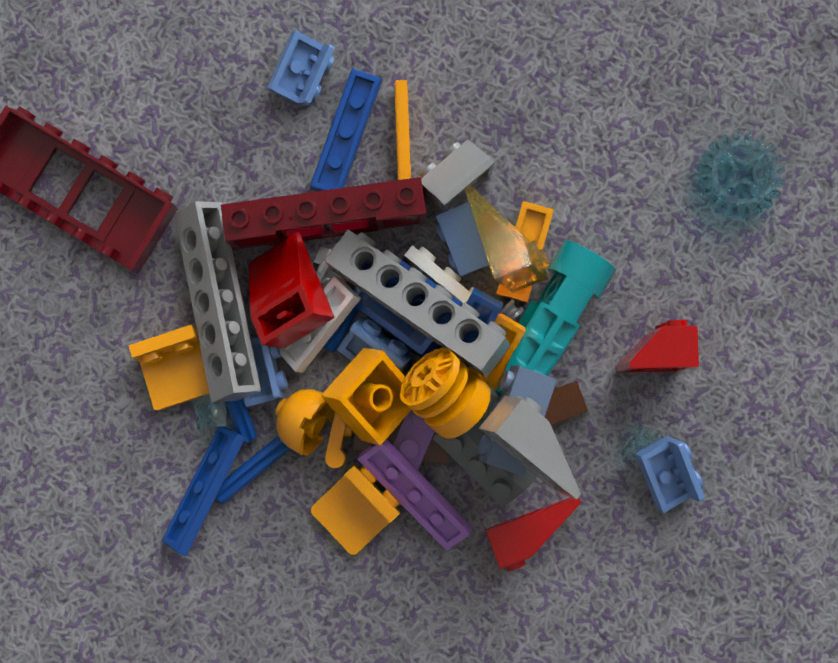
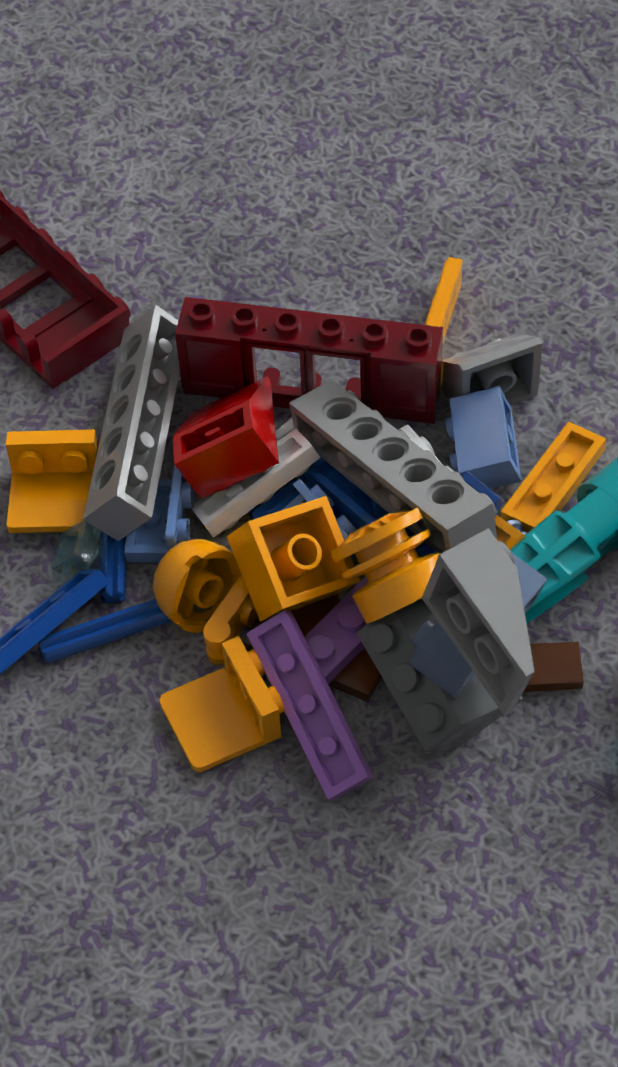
camera: 20 degrees right, 30 degrees down
(301, 69) = (334, 229): medium blue bracket -> none
(346, 131) = (382, 294): blue tile -> none
(511, 255) = (533, 442): clear yellow slope -> none
(524, 535) = (447, 804): red slope -> none

